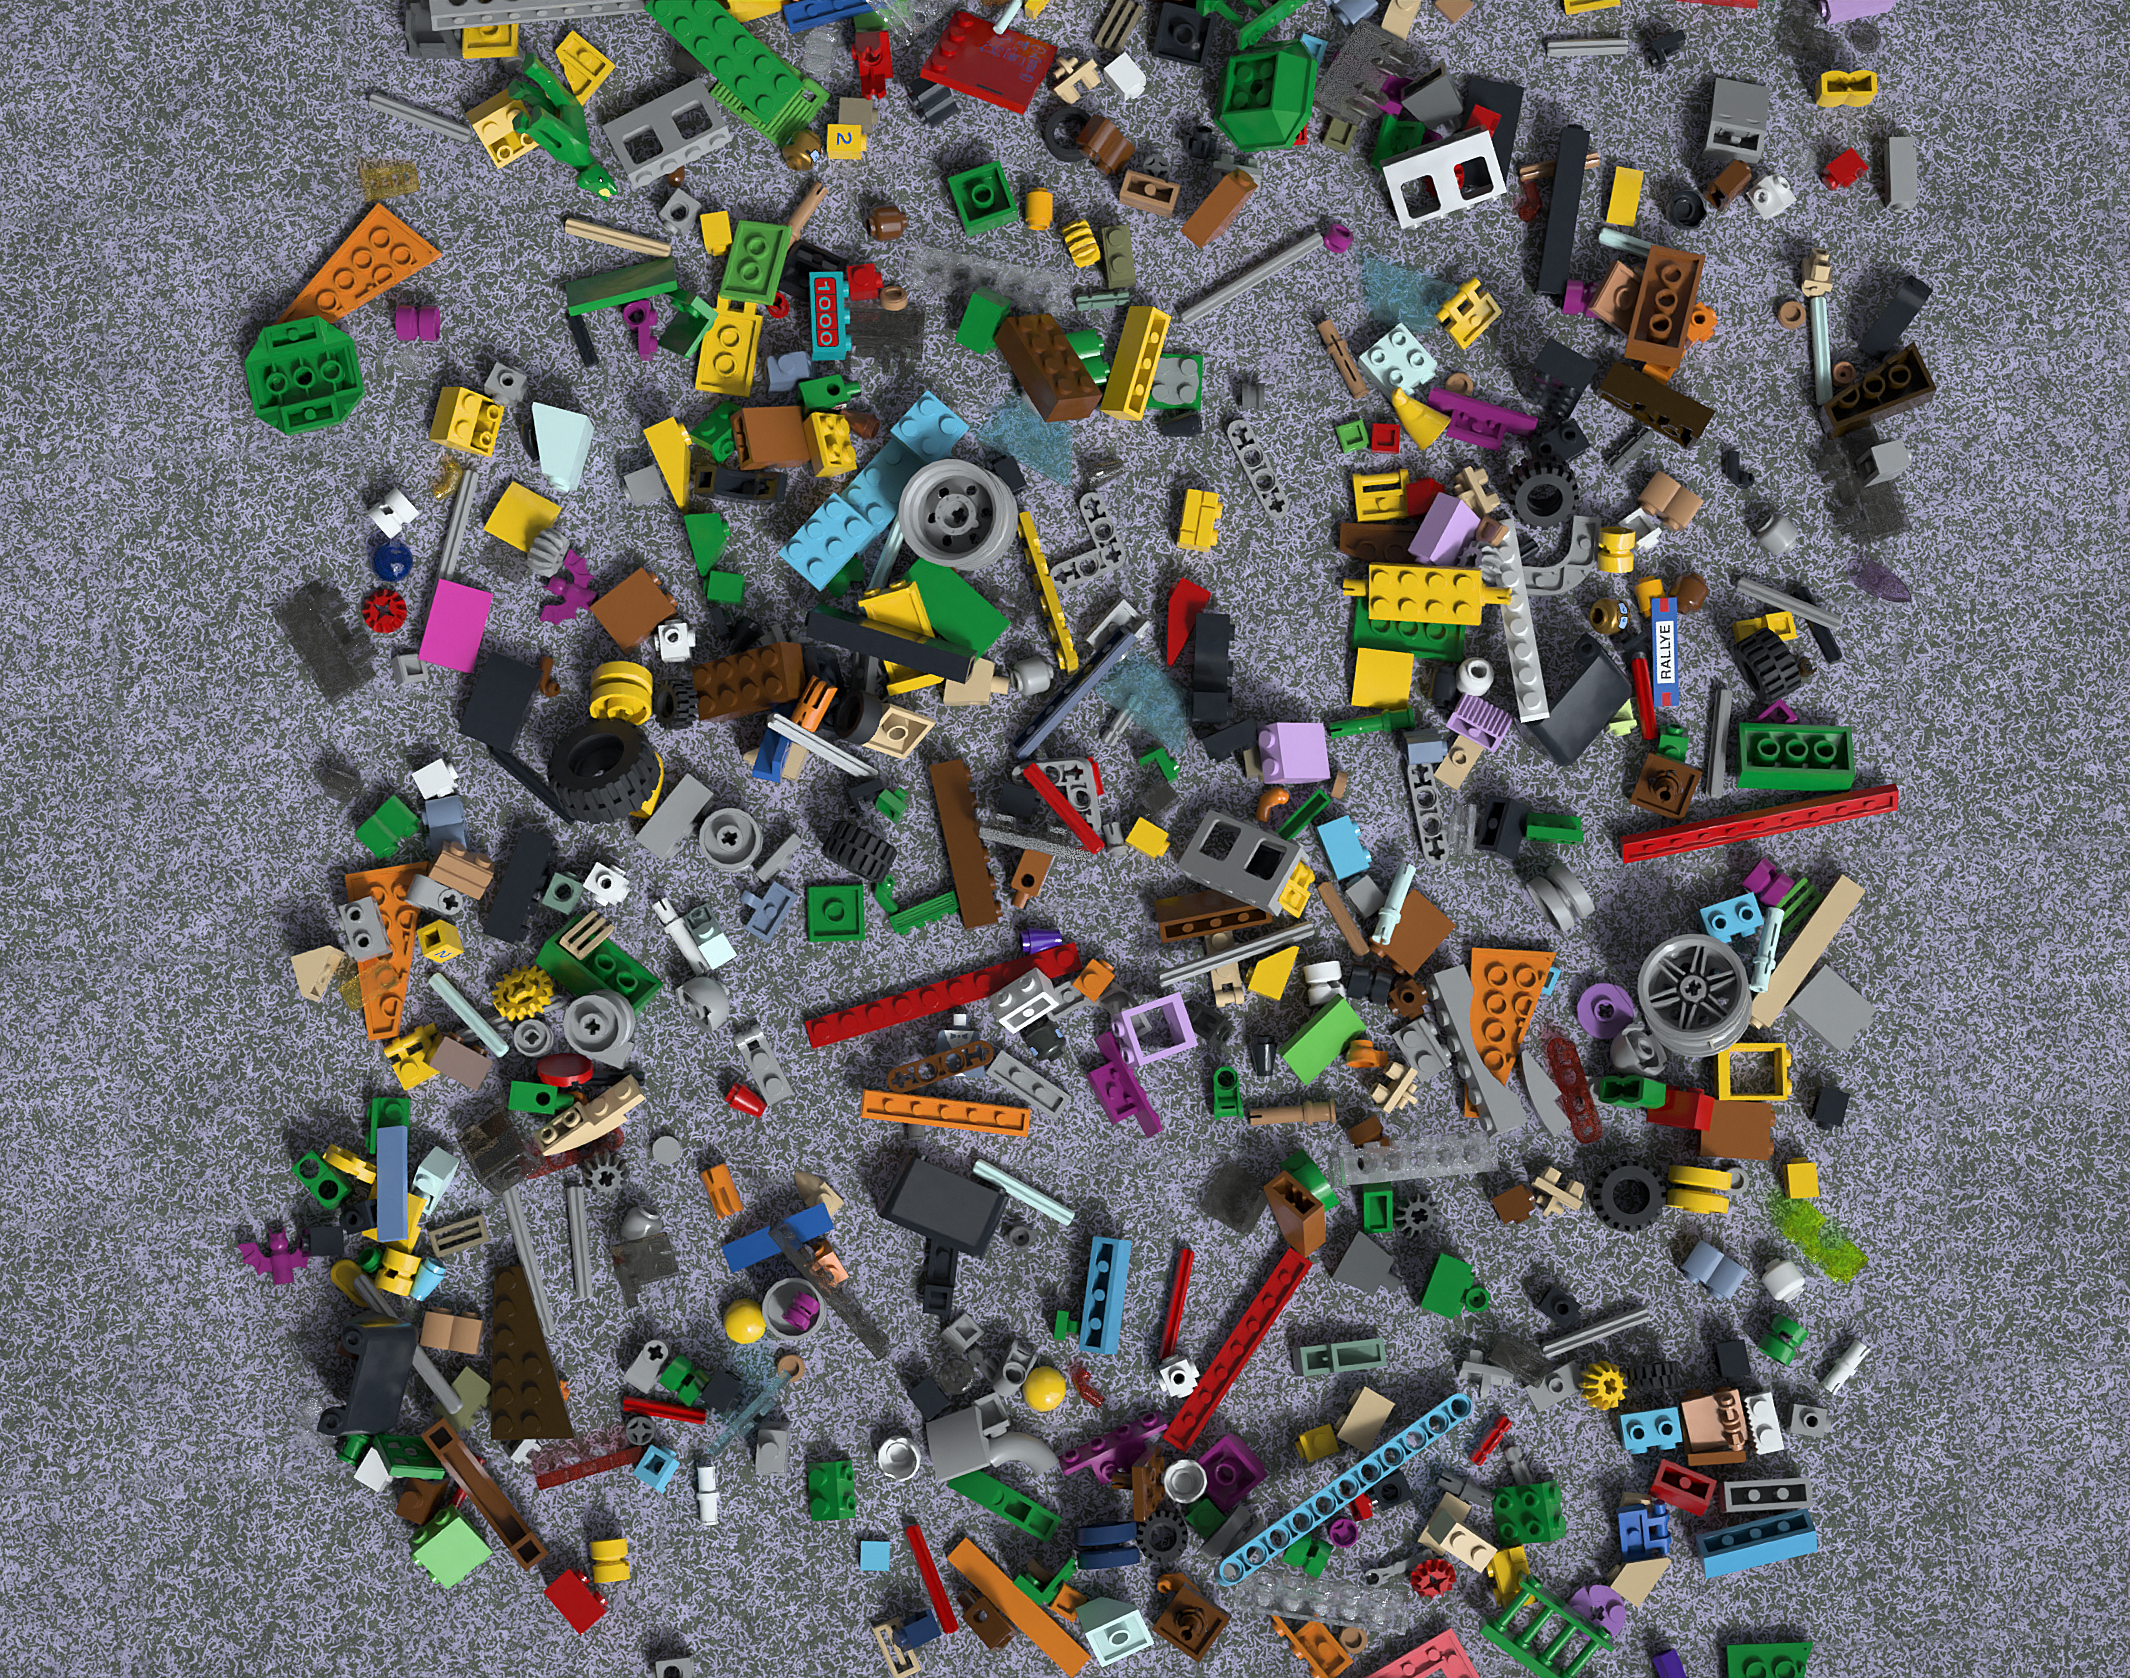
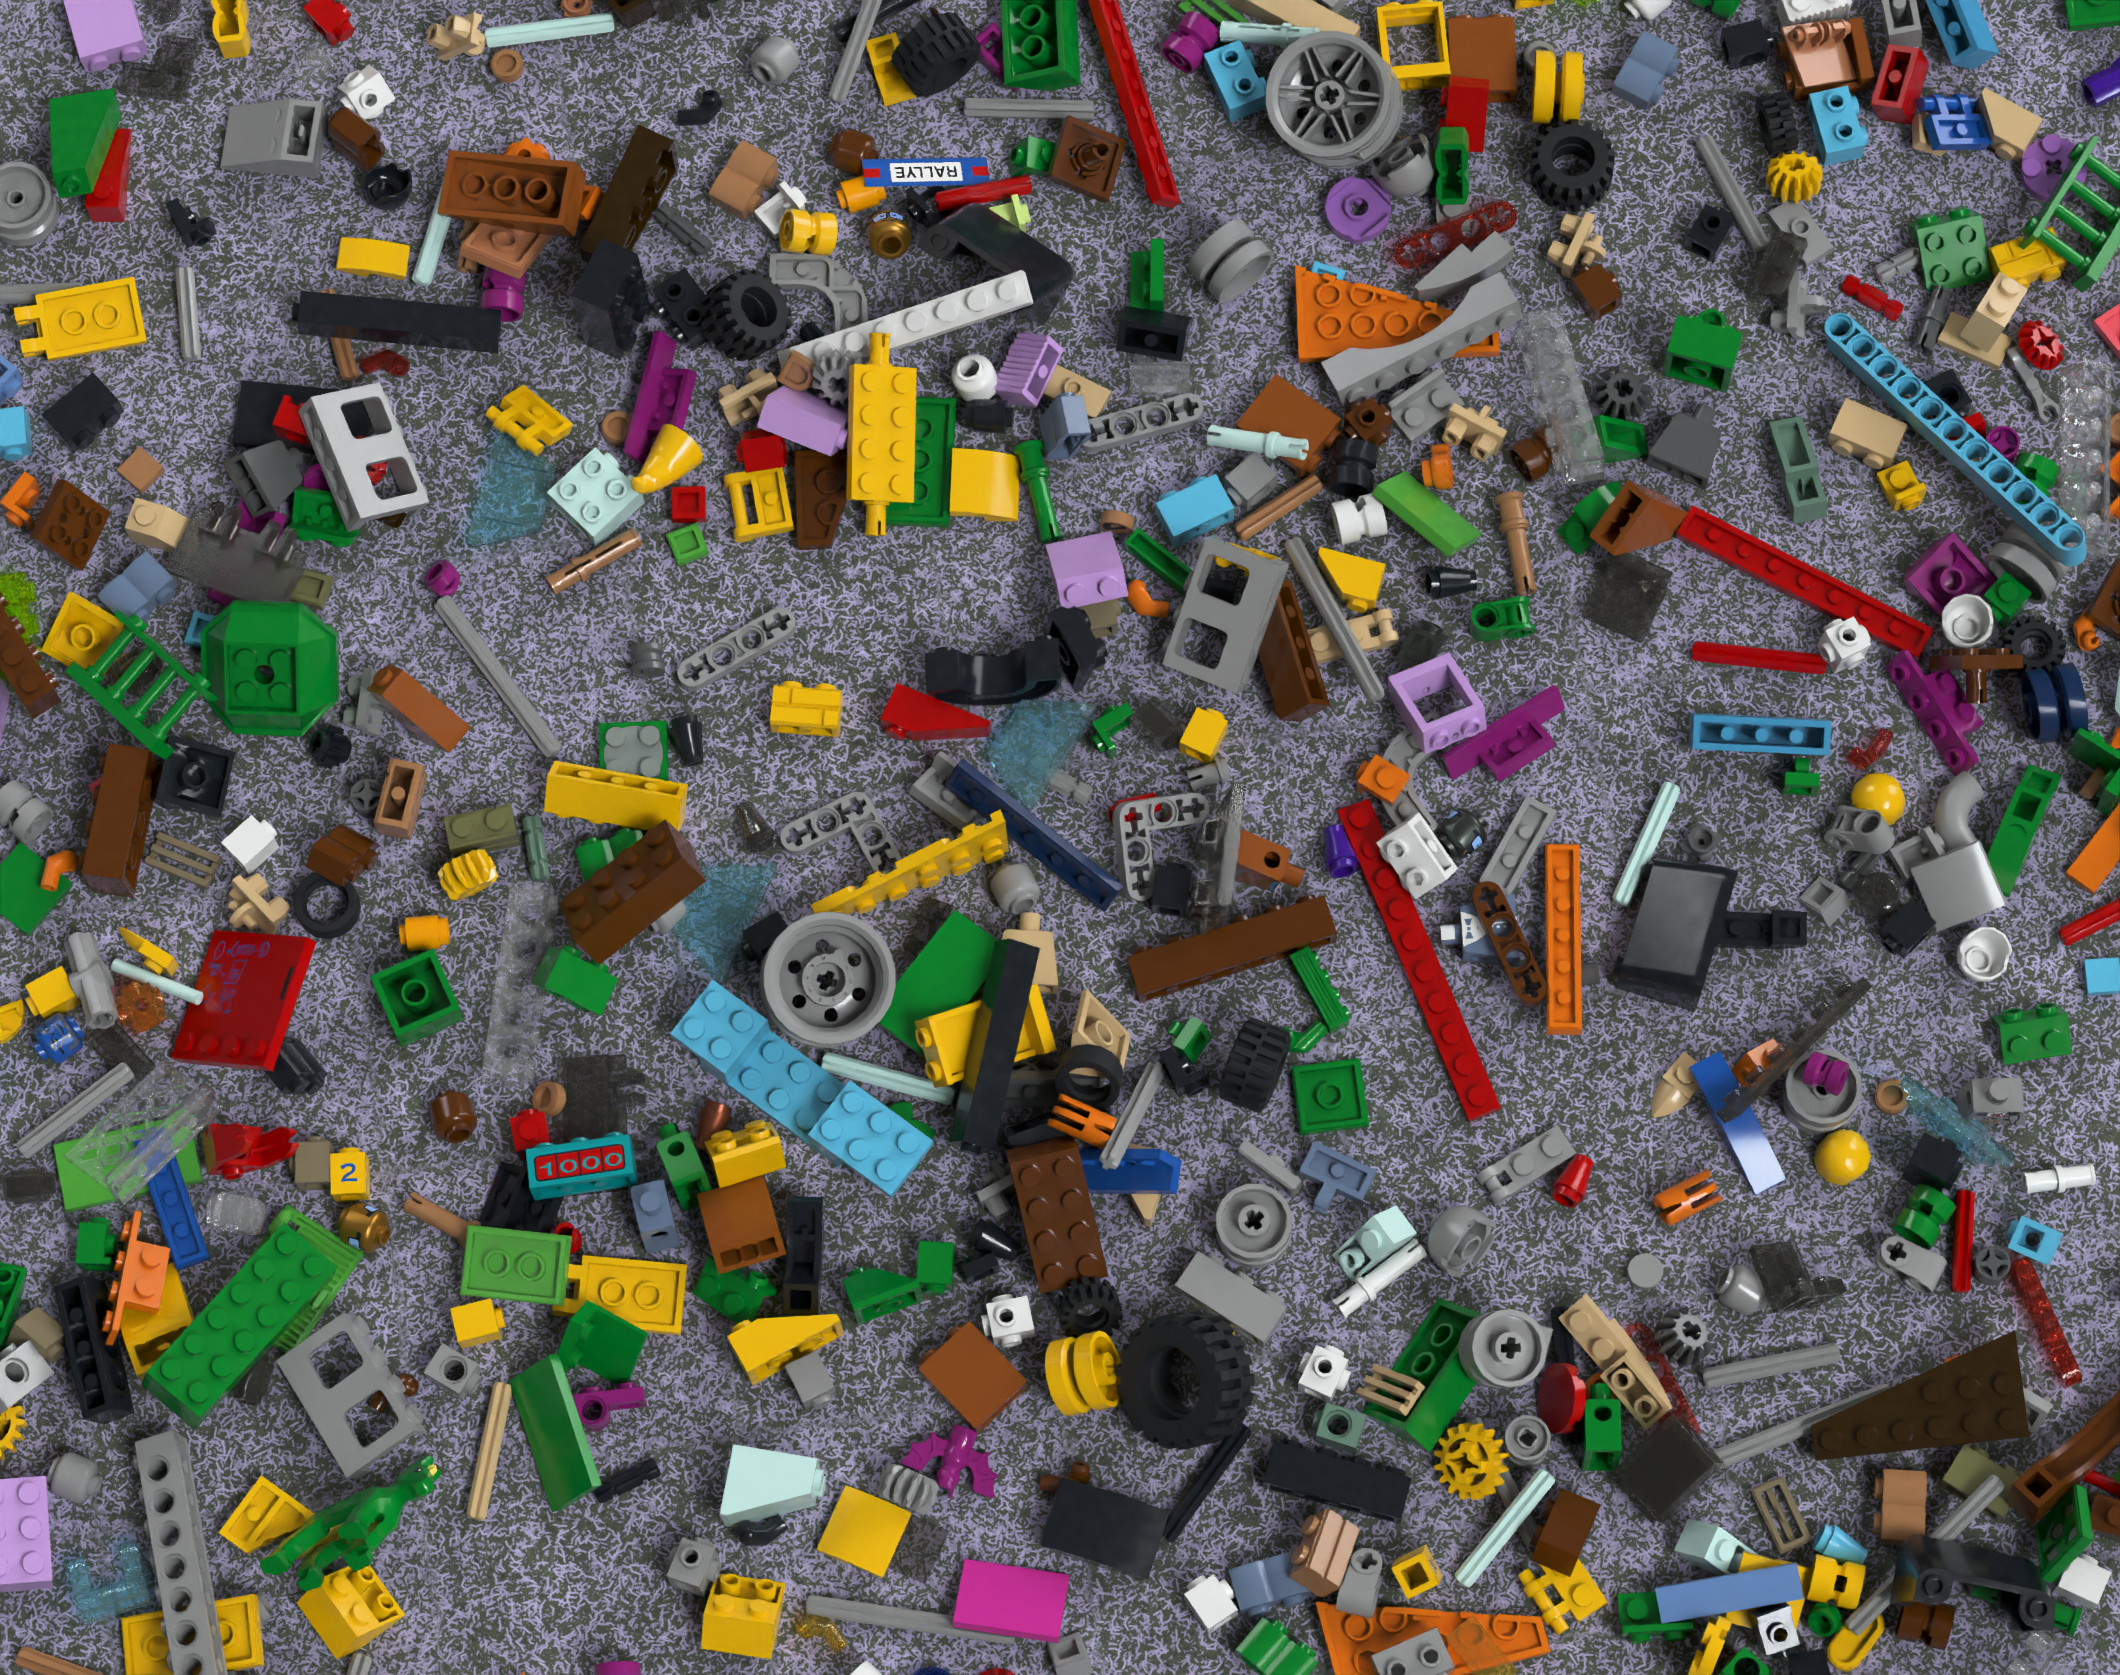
camera: 95 degrees left, 10 degrees down
(1063, 808) = (1177, 832): red axle -> none

